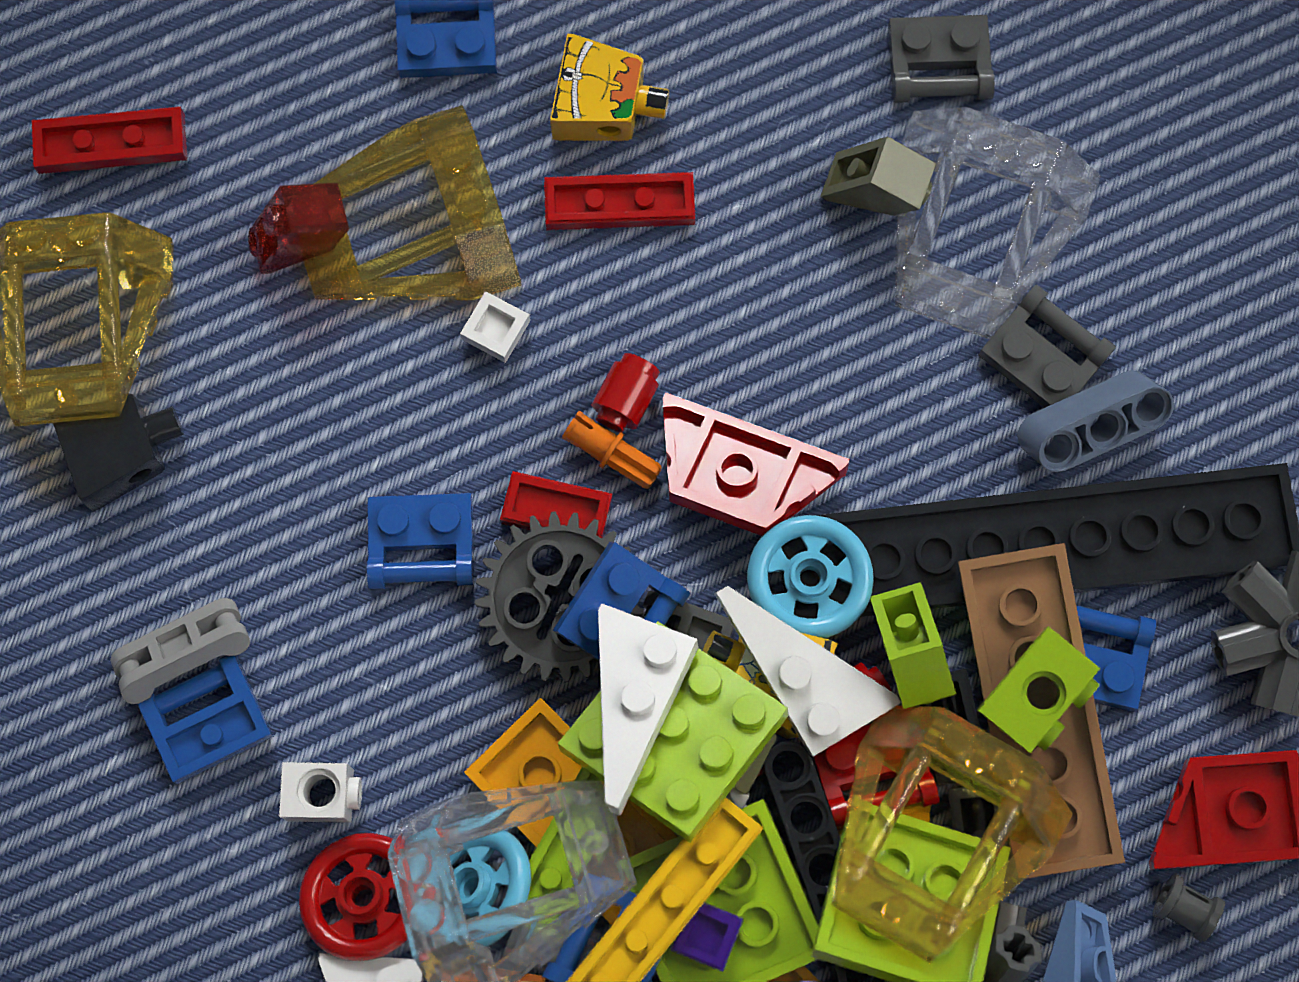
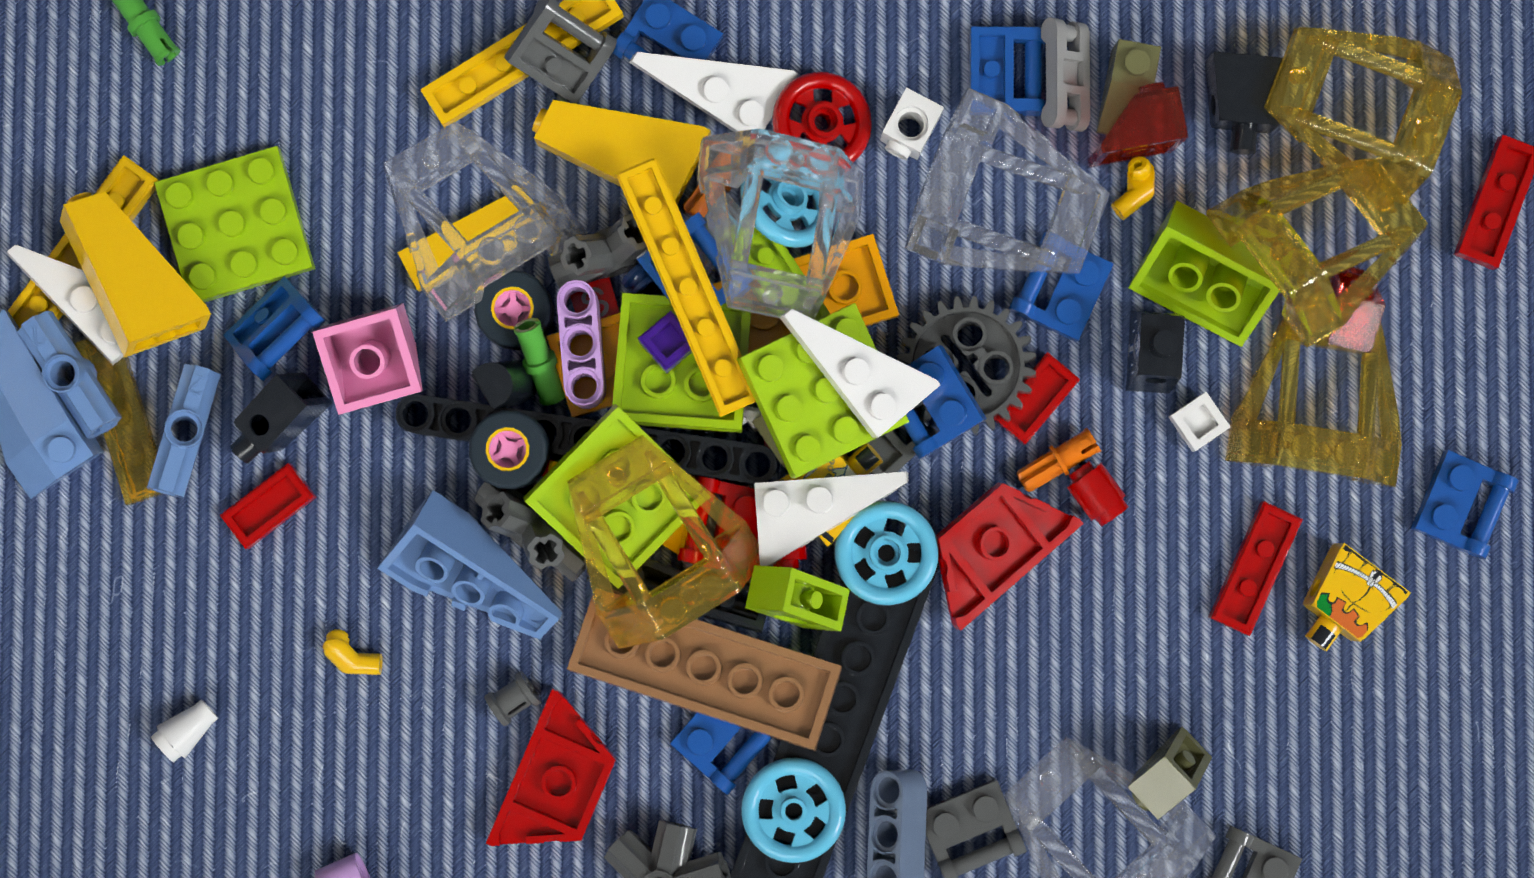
camera: 115 degrees right, 10 degrees up
(163, 575) = (1129, 68): none -> olive slope
(199, 532) = (1146, 127): none -> clear red slope
(269, 511) = (1139, 187): none -> yellow arm
(278, 307) = (1288, 261): none -> clear yellow windscreen
(311, 722) = (960, 151): none -> clear windscreen
(329, 390) = (1203, 277): none -> lime slope
(440, 406) = (1155, 351): none -> black torso
(1049, 658) = (708, 643): lime brick -> none
(1164, 509) = (762, 830): none -> medium azure plate

